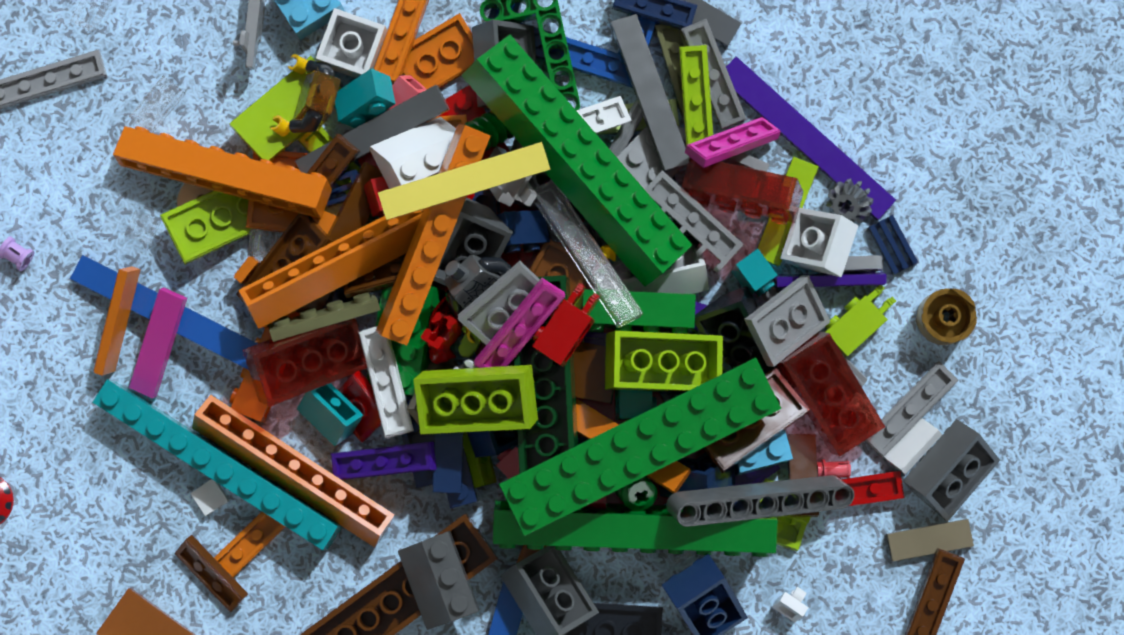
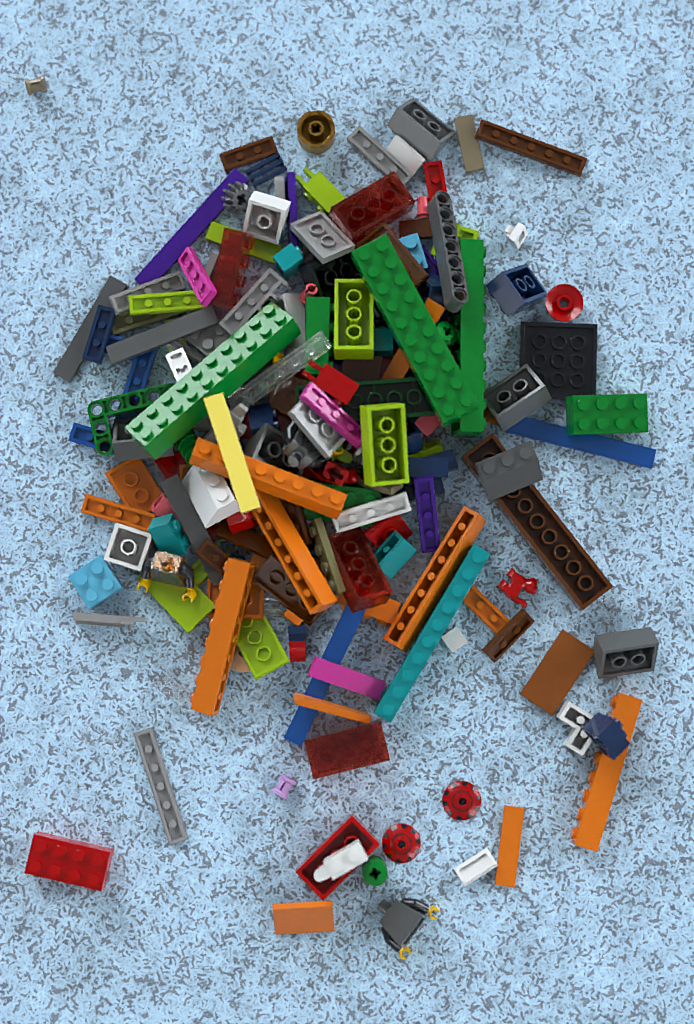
camera: 90 degrees left, 0 degrees up
(59, 341) = (347, 749): none -> clear red brick
(212, 276) = (297, 643): none -> leg
(278, 584) = (515, 586): none -> red animal
(706, 300) = (308, 292): none -> coral pin
(917, 220) = (248, 154): none -> reddish brown tile

